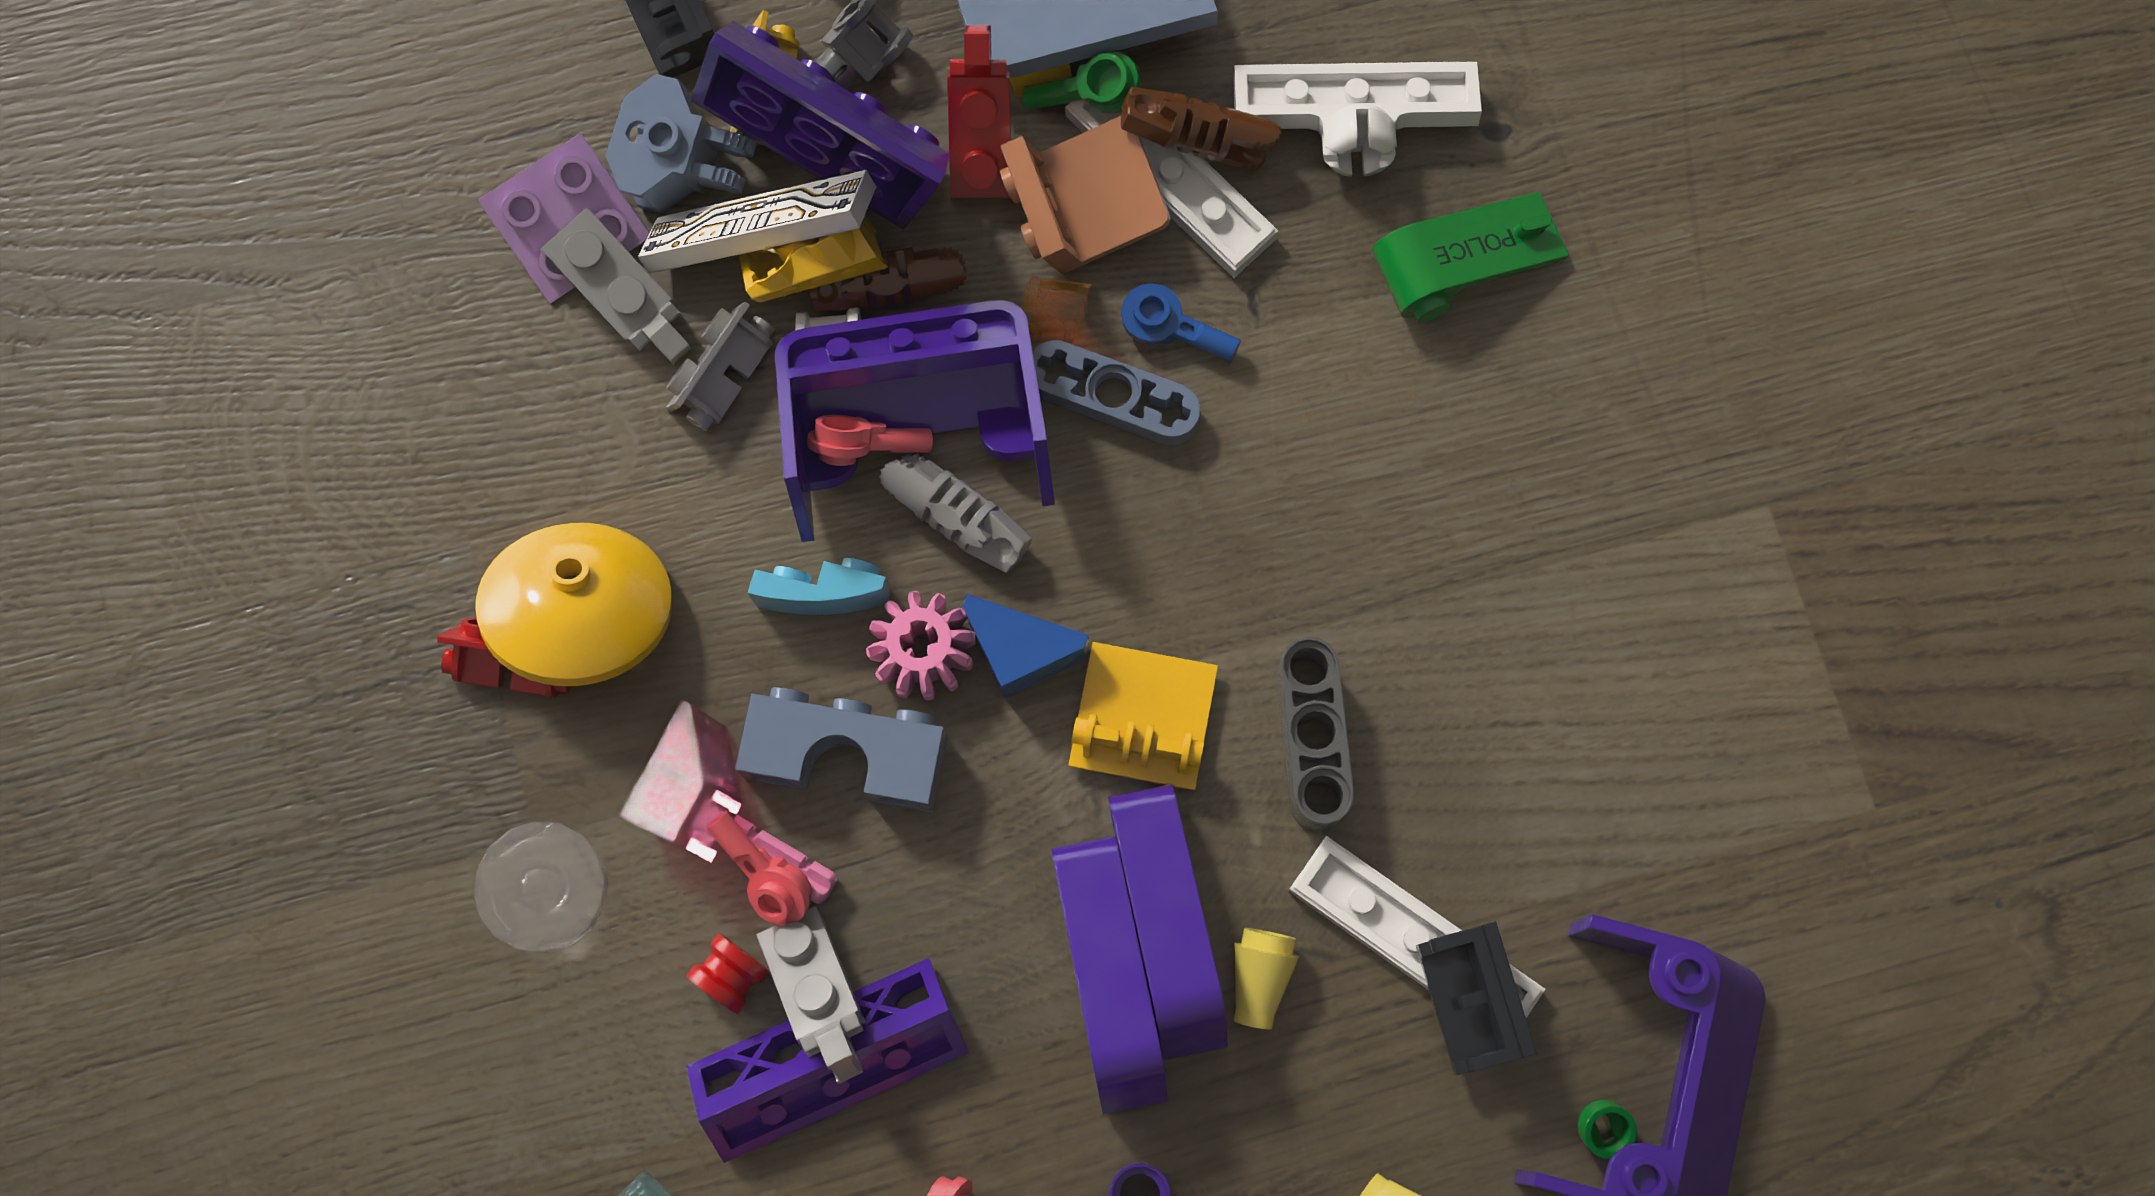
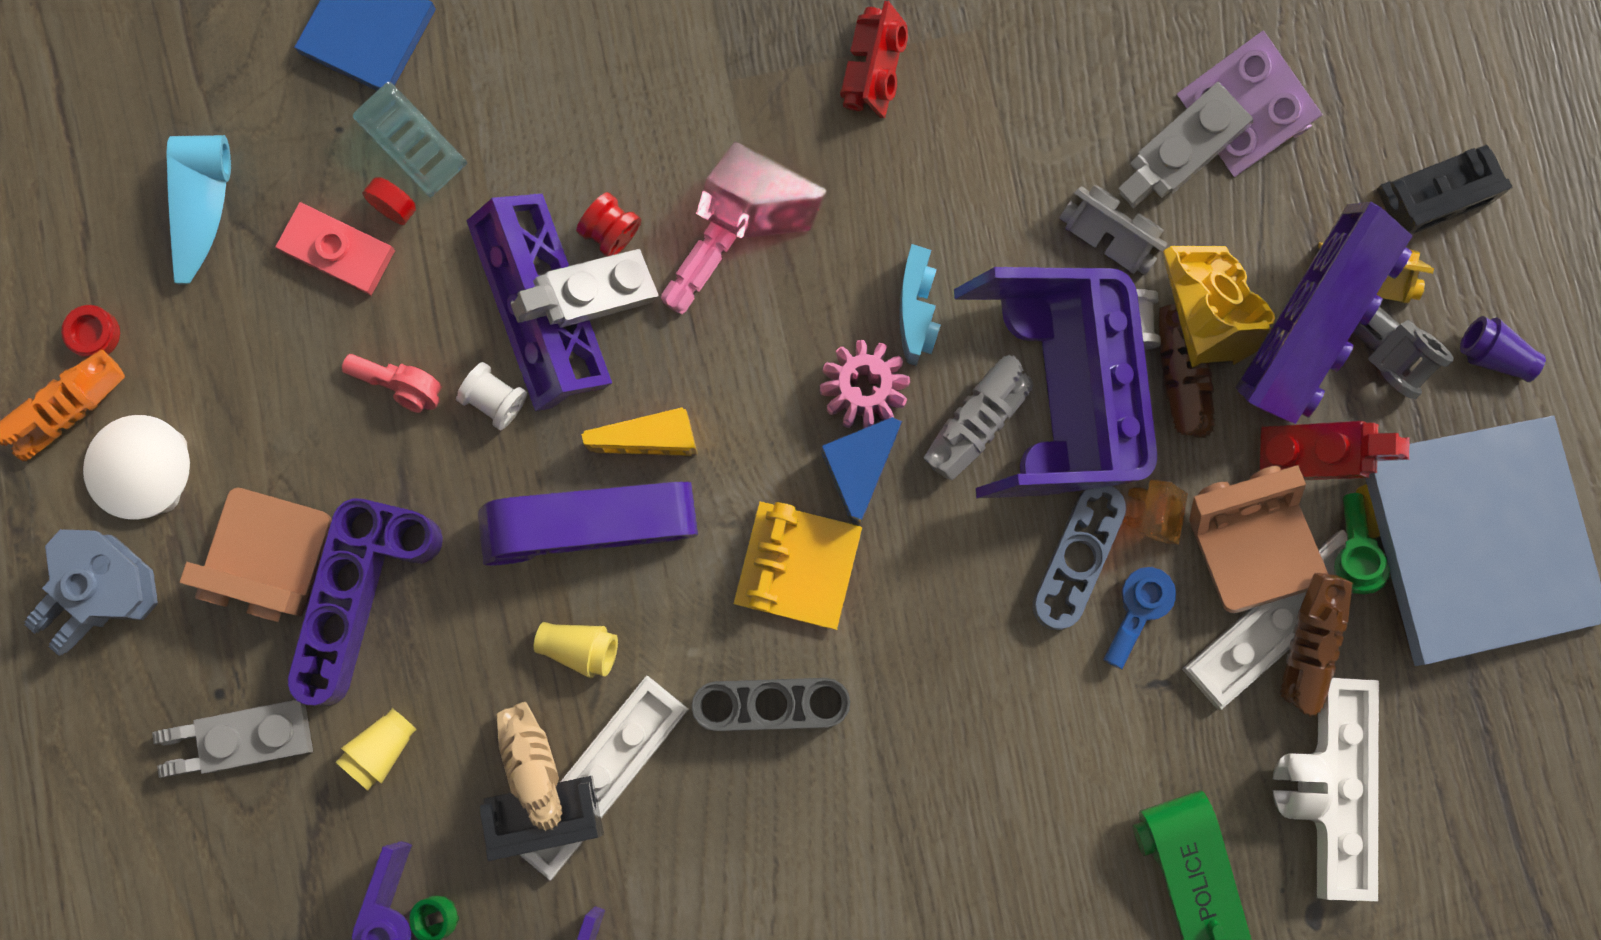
camera: 90 degrees right, 5 degrees up
(540, 887) = (689, 84): clear tile -> none
(577, 626) = (888, 113): yellow dish -> none
(672, 147) = (1308, 192): sand blue hinge -> none
(758, 222) = (1234, 259): white tile -> none
(775, 887) = (672, 262): coral plate -> none
(789, 734) = (794, 275): sand blue arch -> none
(845, 438) = (1042, 328): coral plate -> none
(953, 1108) = (491, 396): none -> white bush
(993, 891) = (652, 435): none -> yellow slope
(1169, 923) = (624, 570): dark purple beam -> none
(1411, 1018) = (529, 765): none -> tan hinge

